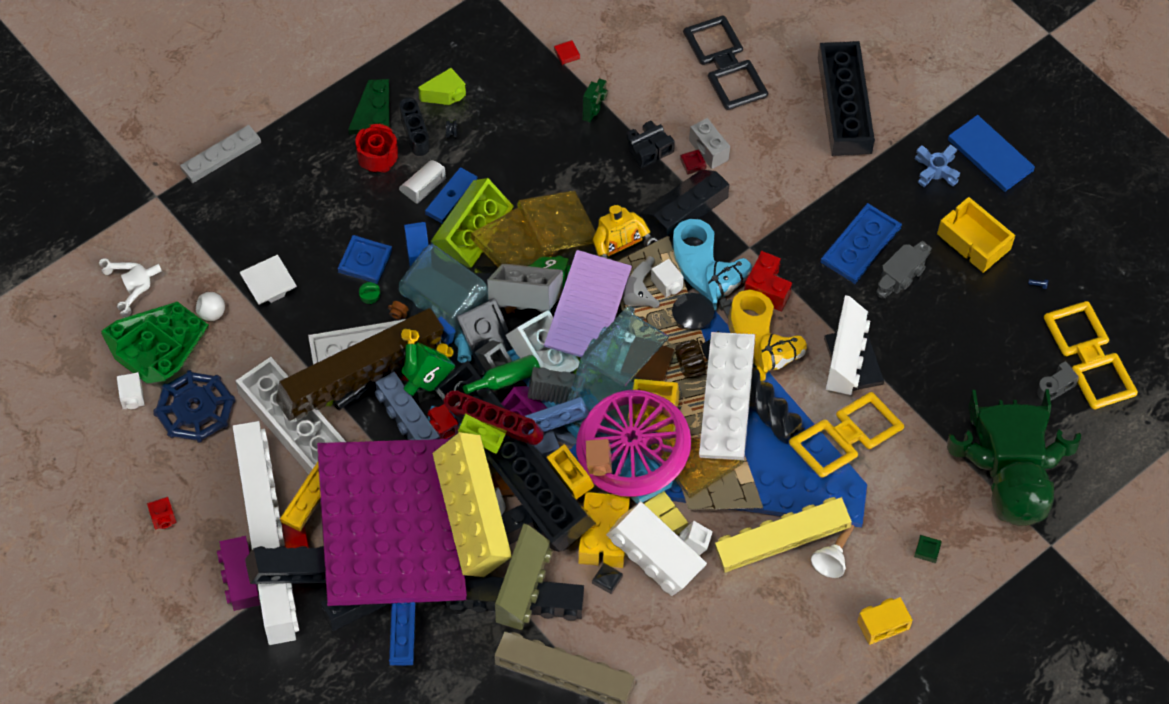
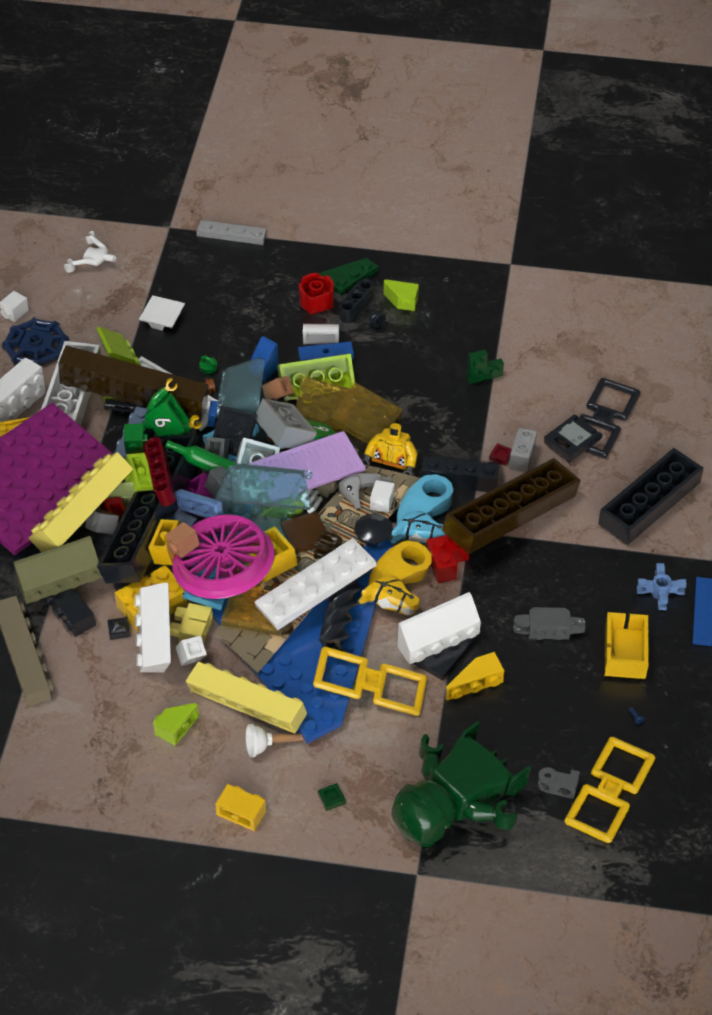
camera: 50 degrees right, 10 degrees down
(155, 340) = (62, 291): green wedge -> none
(210, 306) = (112, 299): white piece -> none
(293, 350) = (116, 346): none -> lime slope
(364, 259) = (231, 347): blue tile -> none
(425, 410) = (134, 438): none -> green brick
(467, 257) = (278, 388): none -> nougat brick
(567, 52) = (508, 334): red tile -> none
(650, 144) = (485, 420): black hips -> none
(730, 94) = (576, 434): none -> black container
(754, 608) = (175, 722): none -> lime slope
(772, 198) = (510, 505): none -> dark brown brick
(861, 243) = (545, 589): blue tile -> none
(906, 354) = (479, 674): none -> yellow slope

